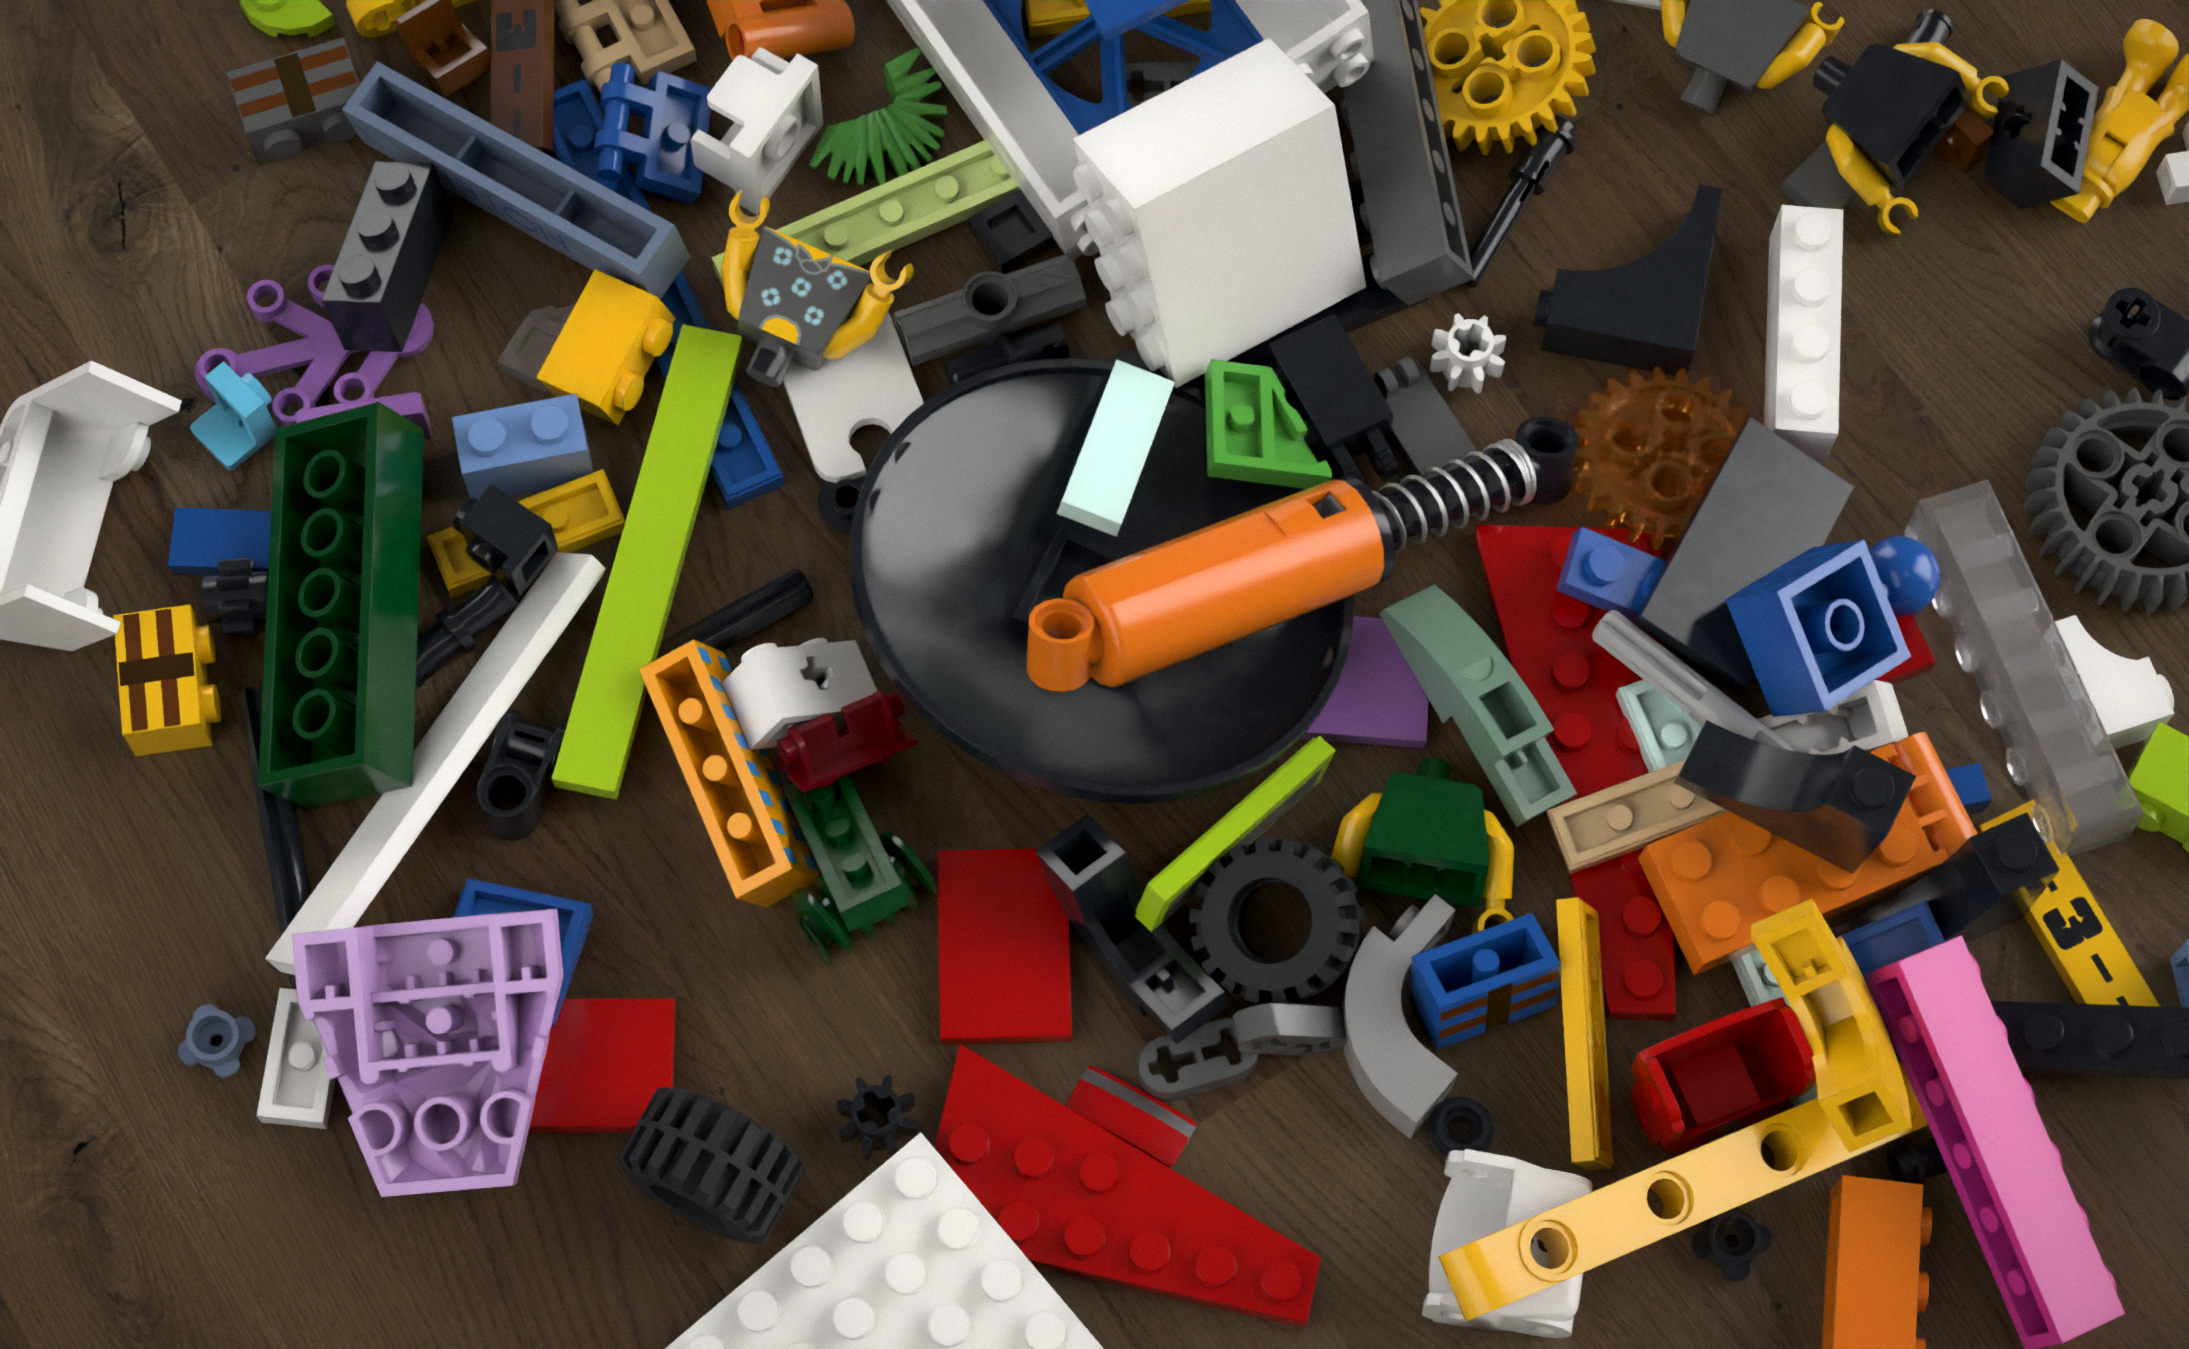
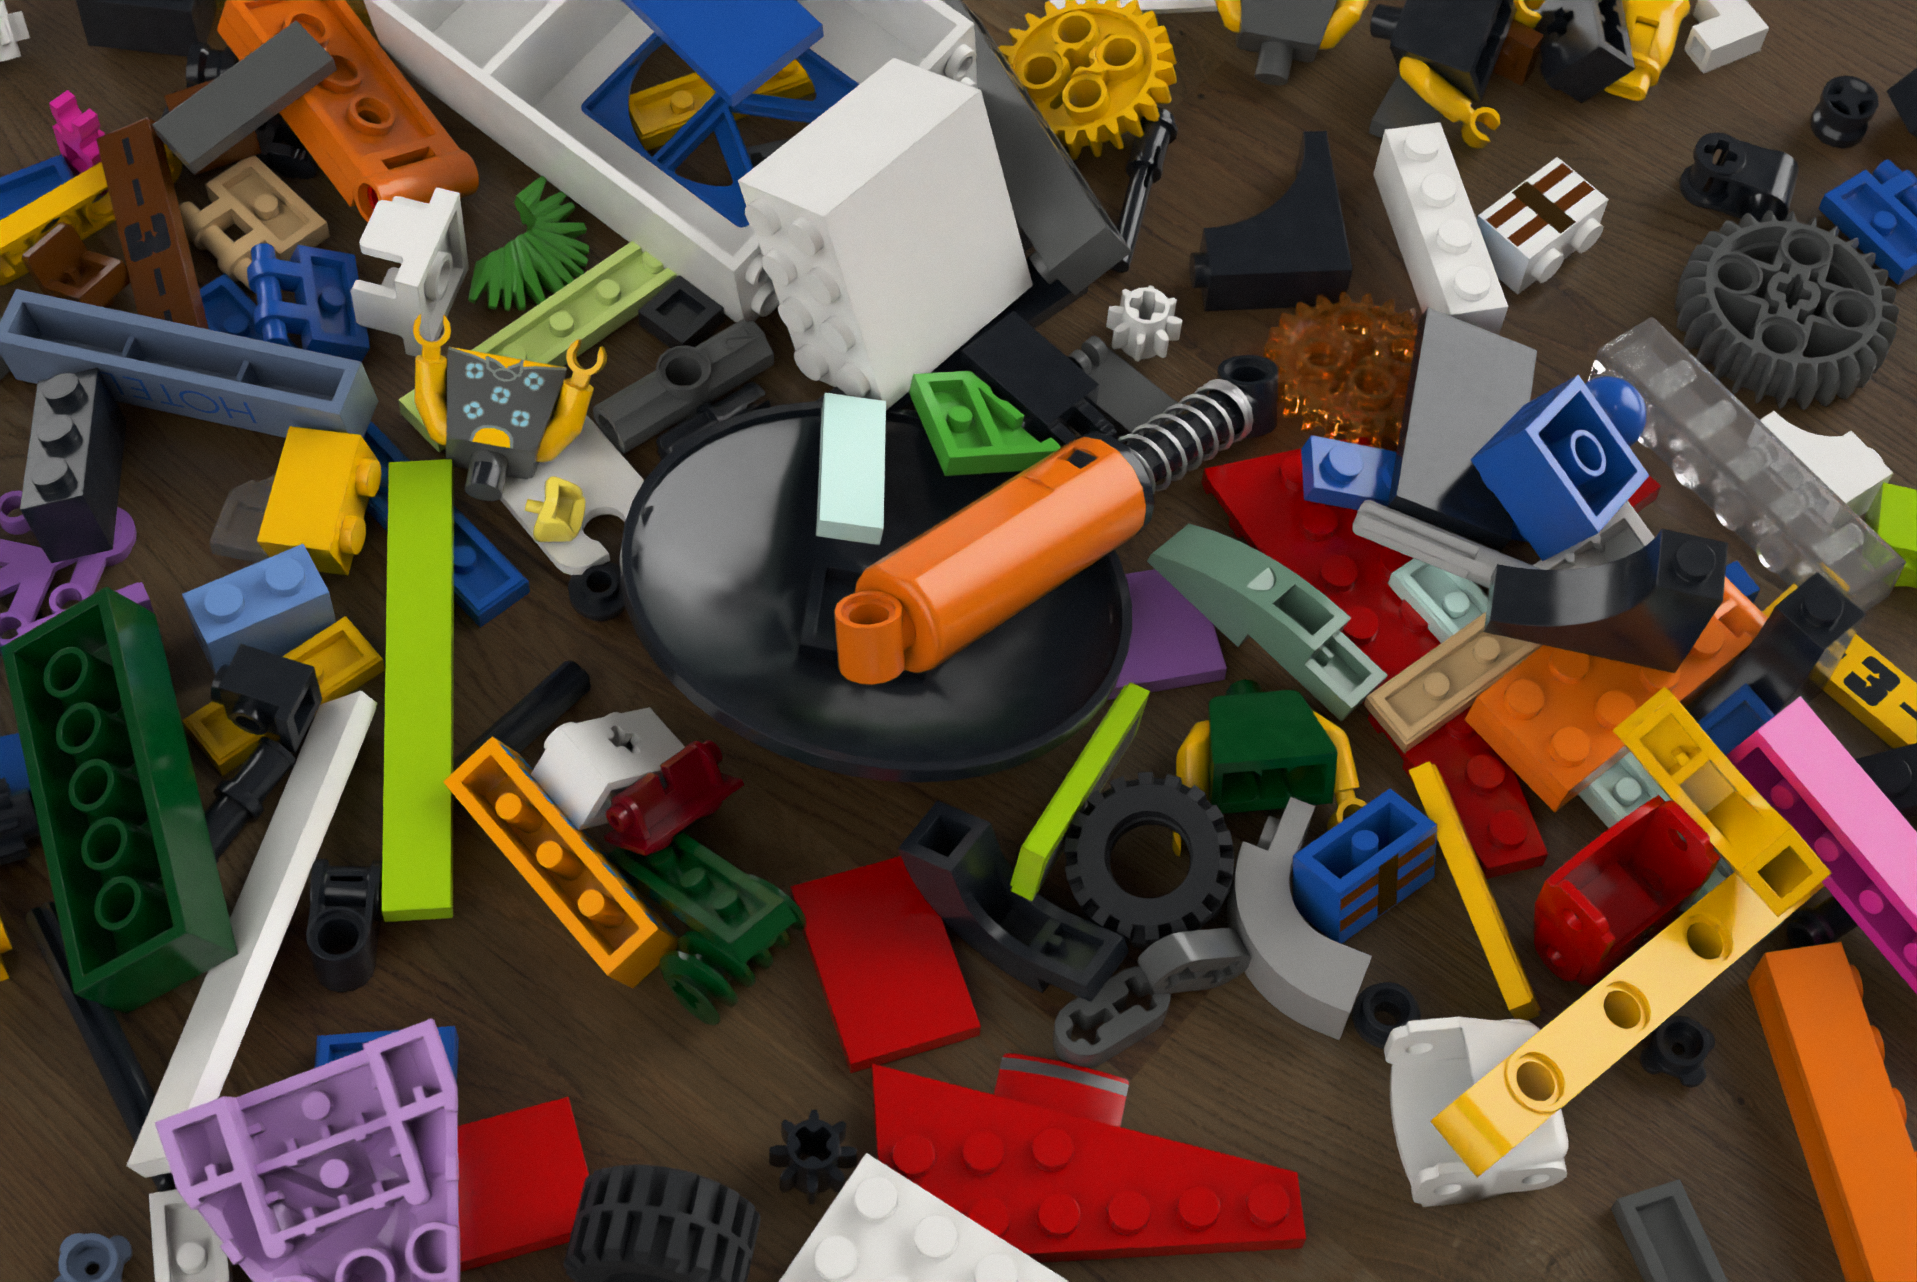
camera: 20 degrees left, 10 degrees down
(828, 418) = (560, 513): none -> light yellow piece
(1914, 344) = (1541, 225): none -> white brick

